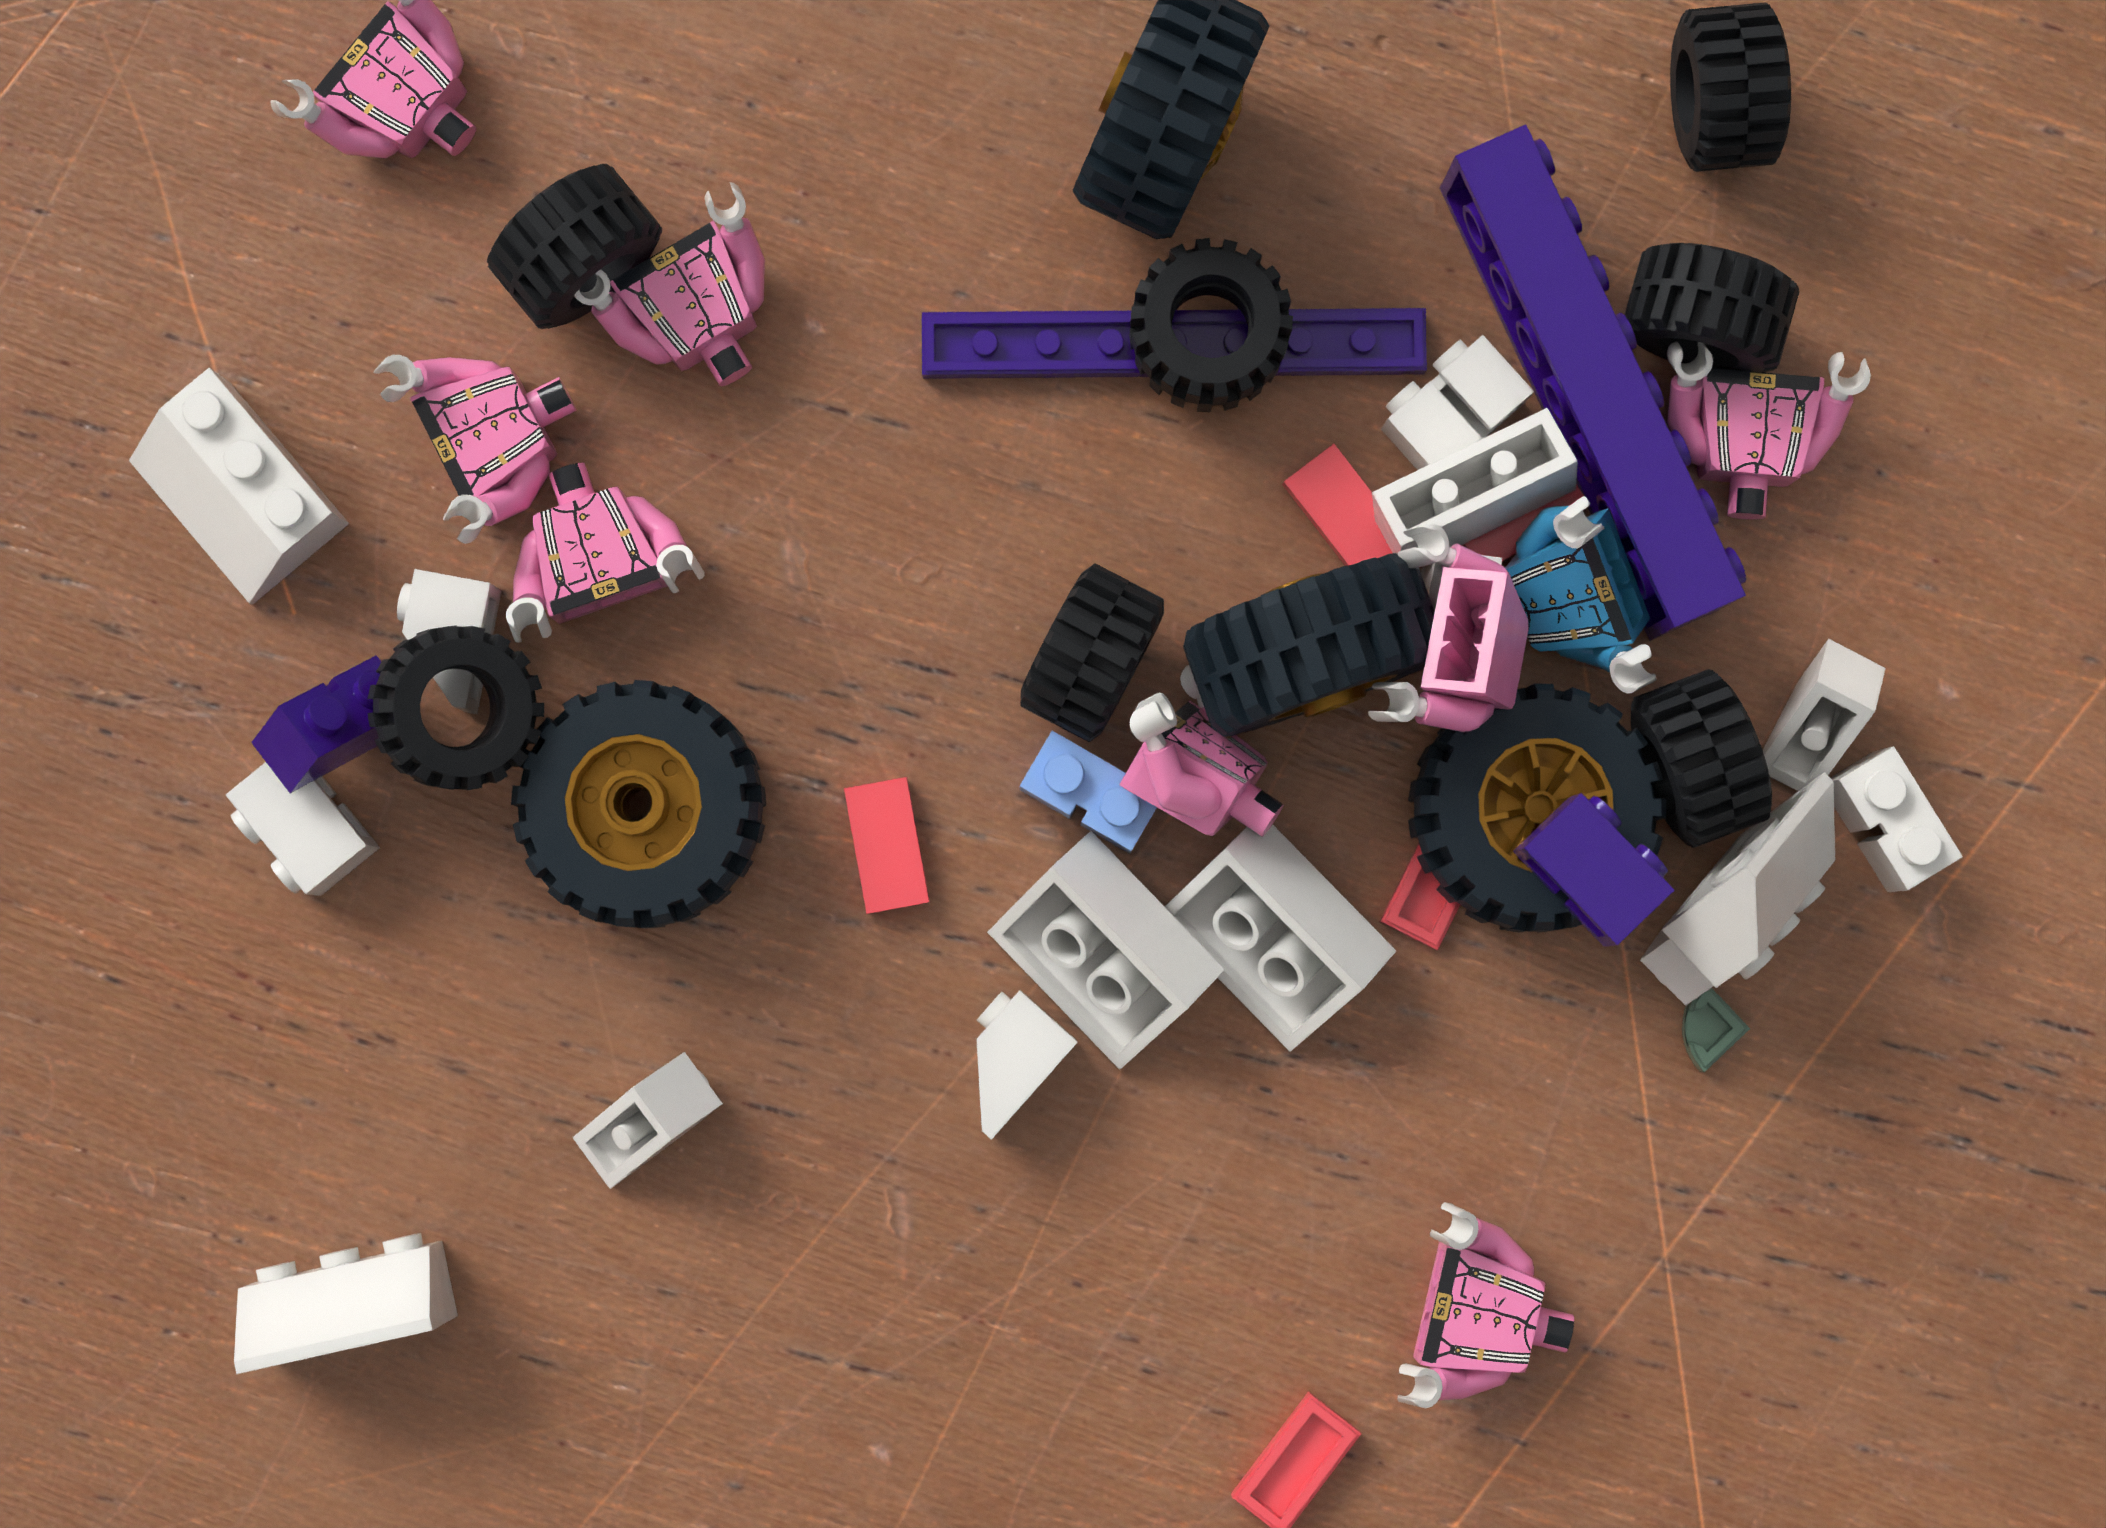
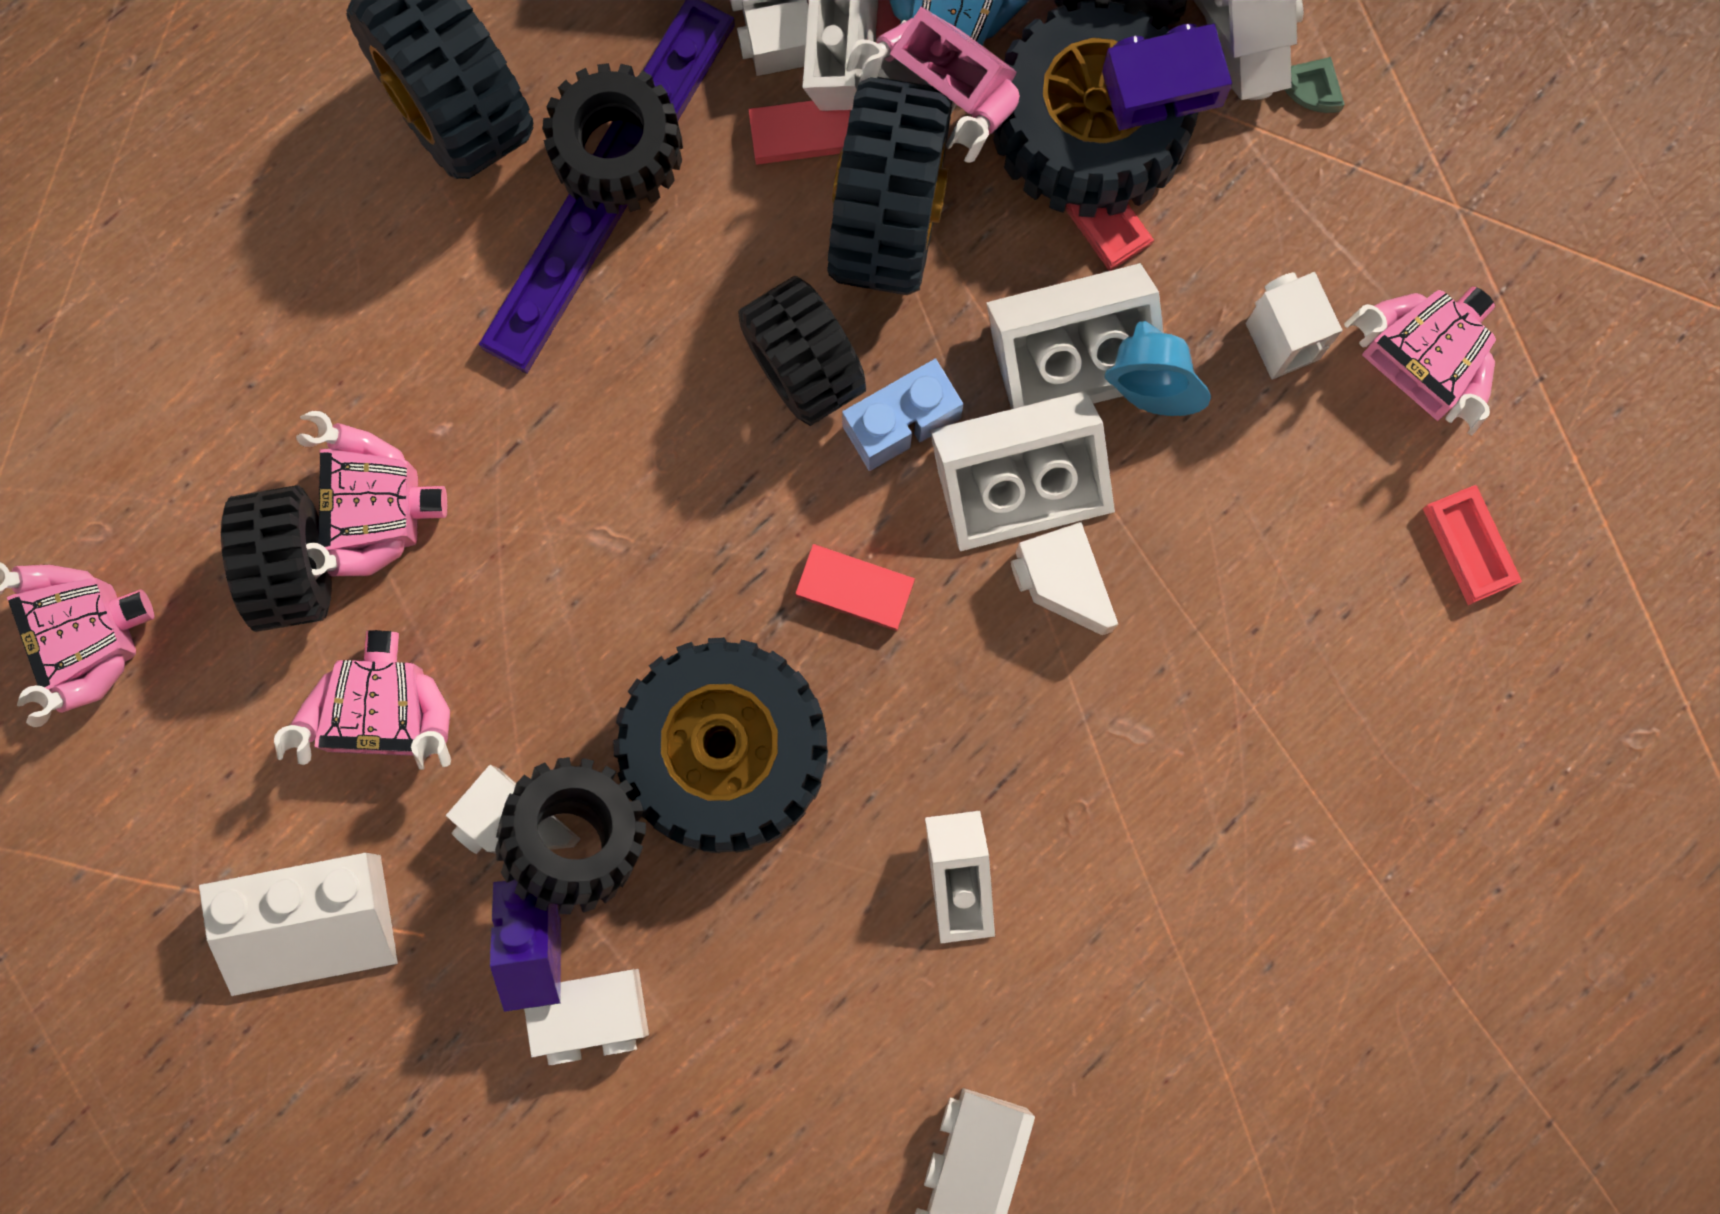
camera: 60 degrees left, 5 degrees down
(593, 554) = (513, 676): bright pink torso -> none
(1195, 769) = (930, 322): bright pink torso -> none
(1284, 1032) = (1158, 373): none -> dark azure piece
(1417, 1146) = (1292, 323): none -> white piece

